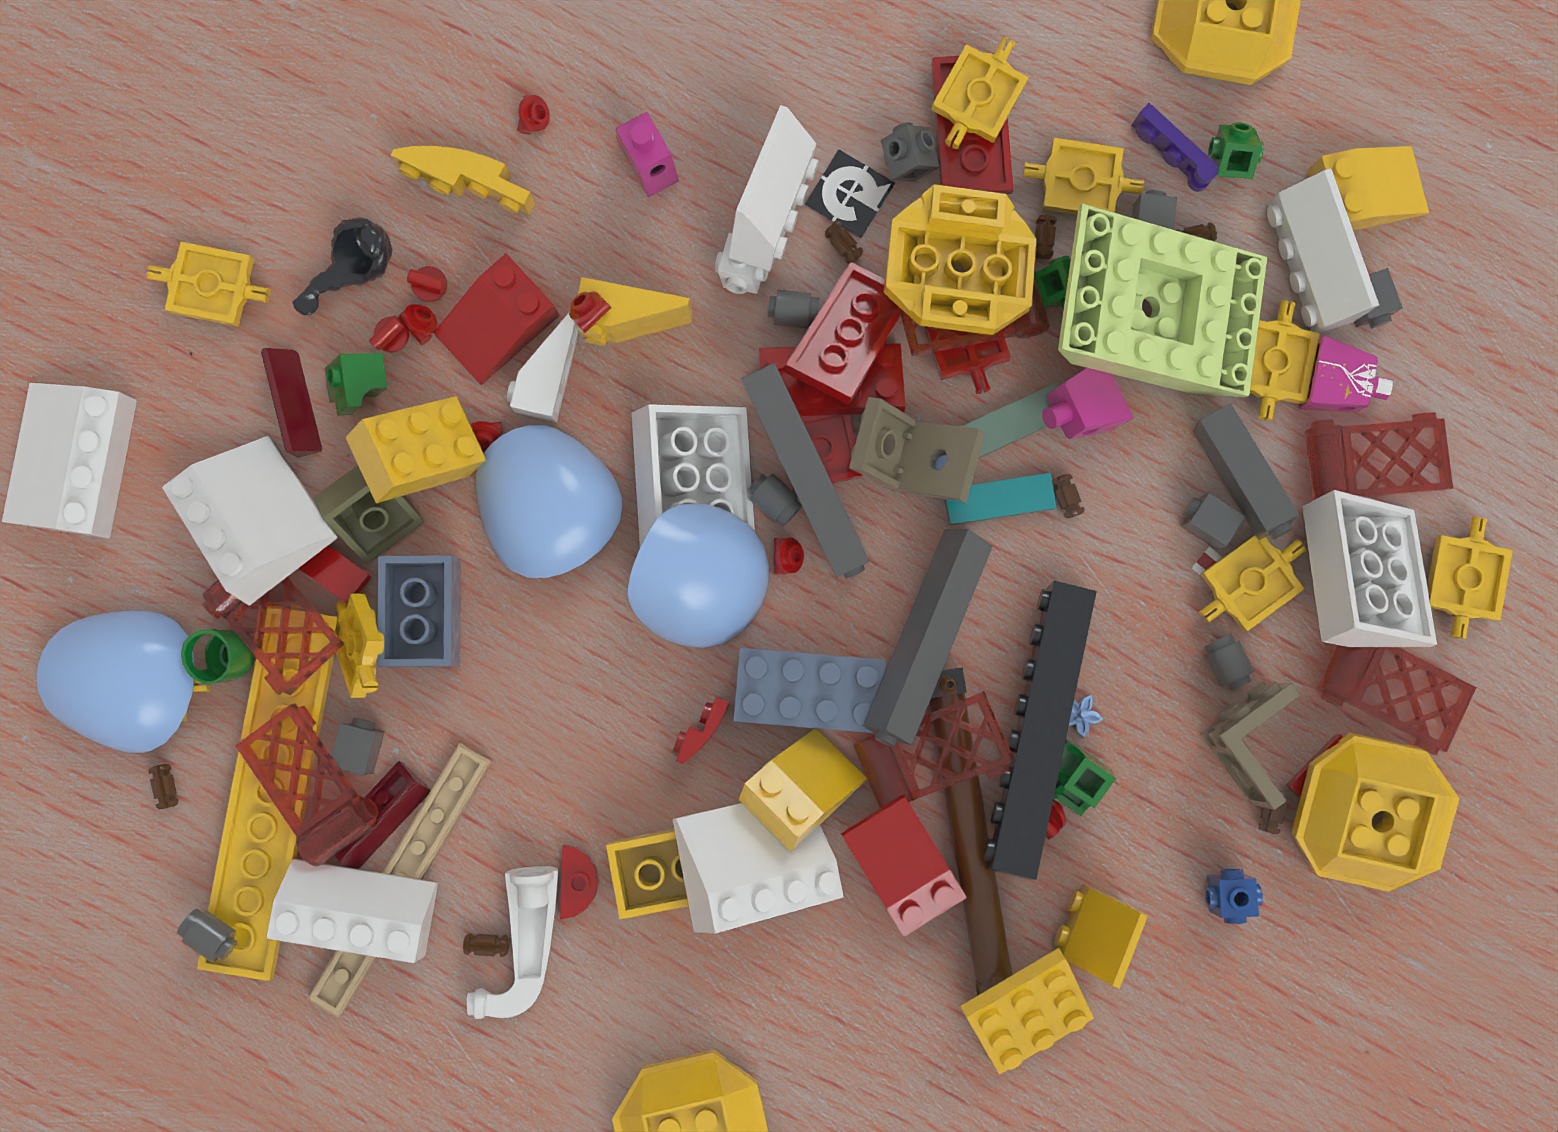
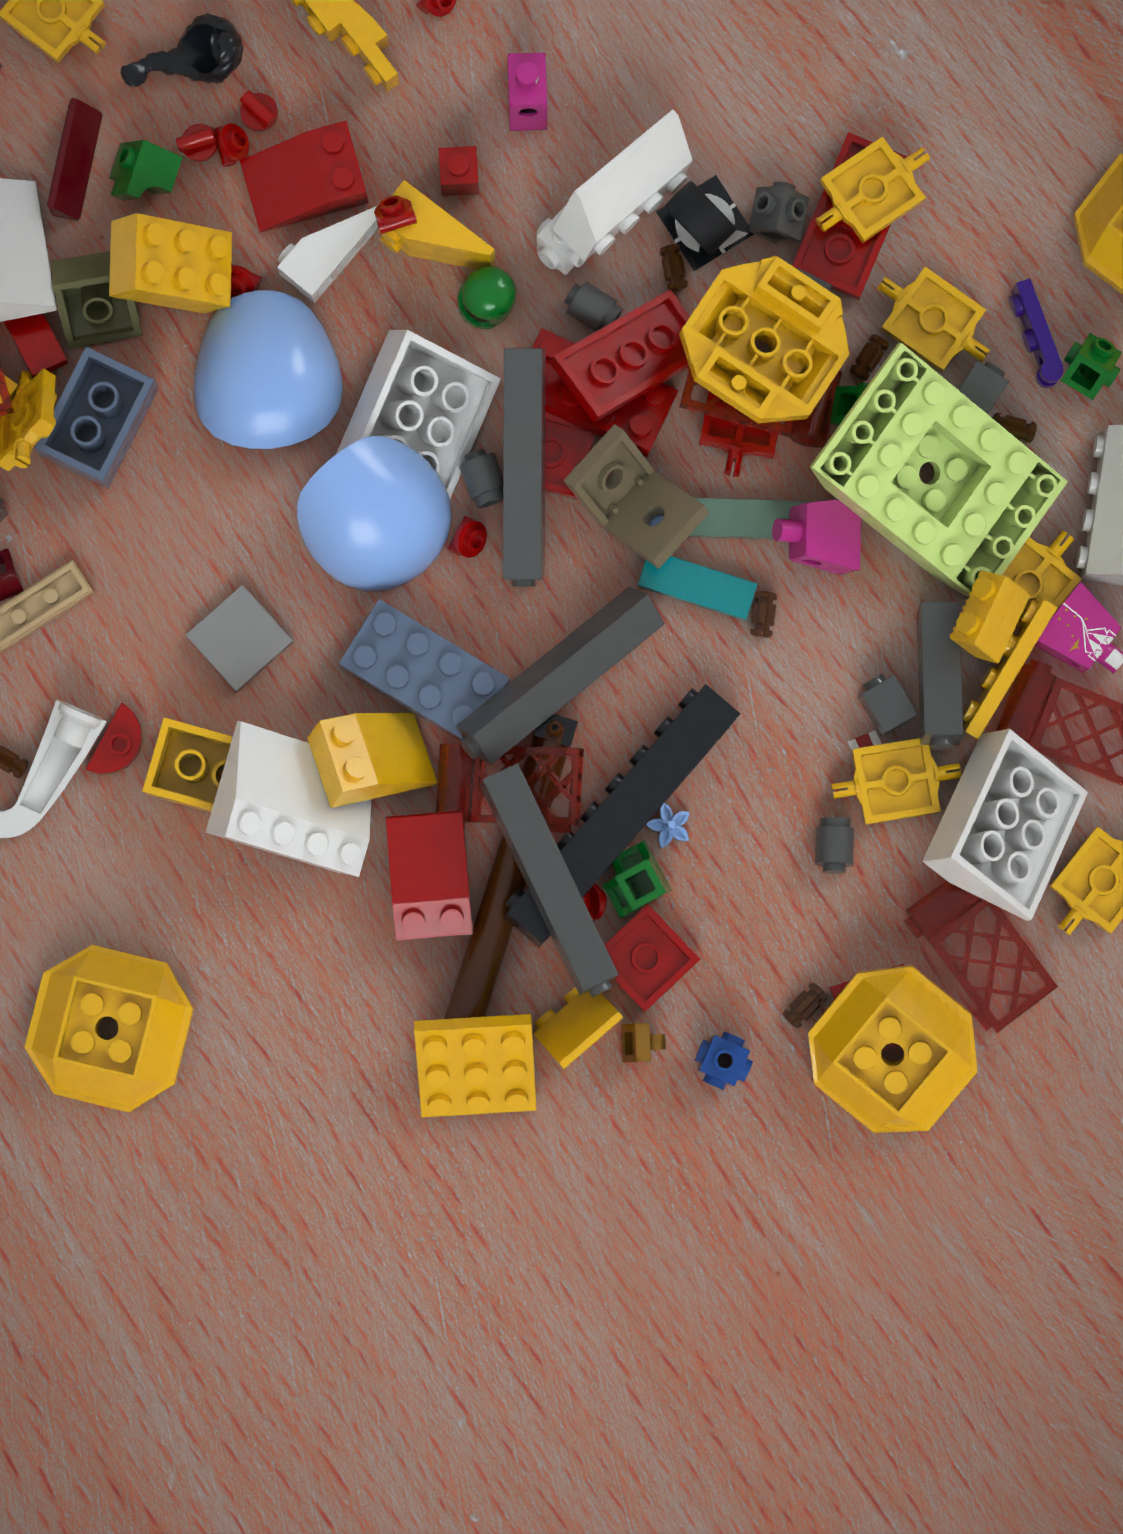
camera: 20 degrees right, 0 degrees up
(623, 249) = (458, 171): none -> red brick
(635, 739) = (239, 638): none -> light grey tile
(691, 742) = (293, 666): red slope -> none
(700, 341) = (487, 295): none -> green helmet
(847, 187) = (700, 217): none -> black tyre
(1018, 825) = (549, 881): none -> dark grey brick
(1120, 840) = (649, 957): none -> red plate
(1158, 912) = (638, 1042): none -> pearl gold tile
(1237, 722) = (809, 899): dark tan bracket -> none
(1268, 402) = (989, 616): none -> yellow brick
(1301, 435) = (998, 680): none -> yellow plate

